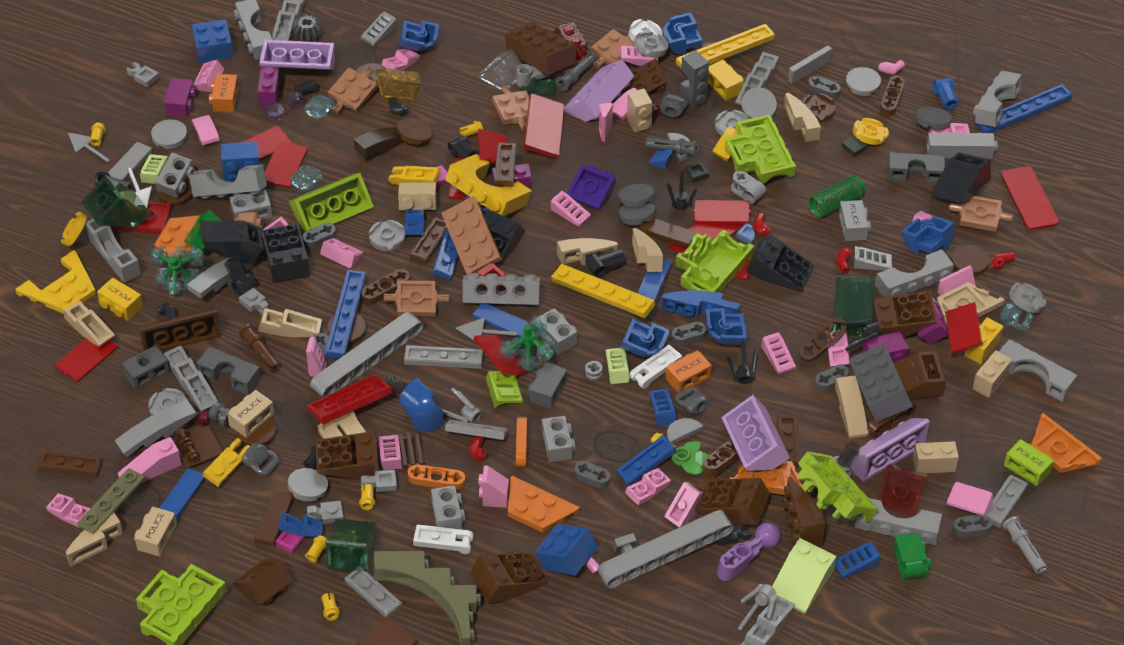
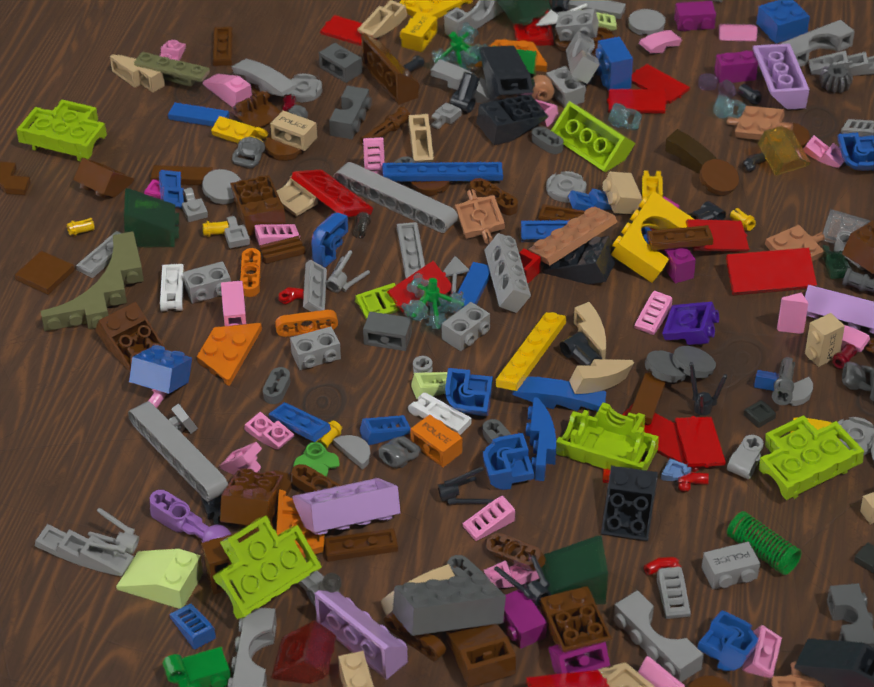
camera: 80 degrees right, 5 degrees down
(155, 531) = (150, 105): tan brick -> none
(190, 378) = (330, 96): light grey slope -> none
(224, 93) = (714, 41): orange brick -> none
(340, 252) = (532, 159): bright pink slope -> none

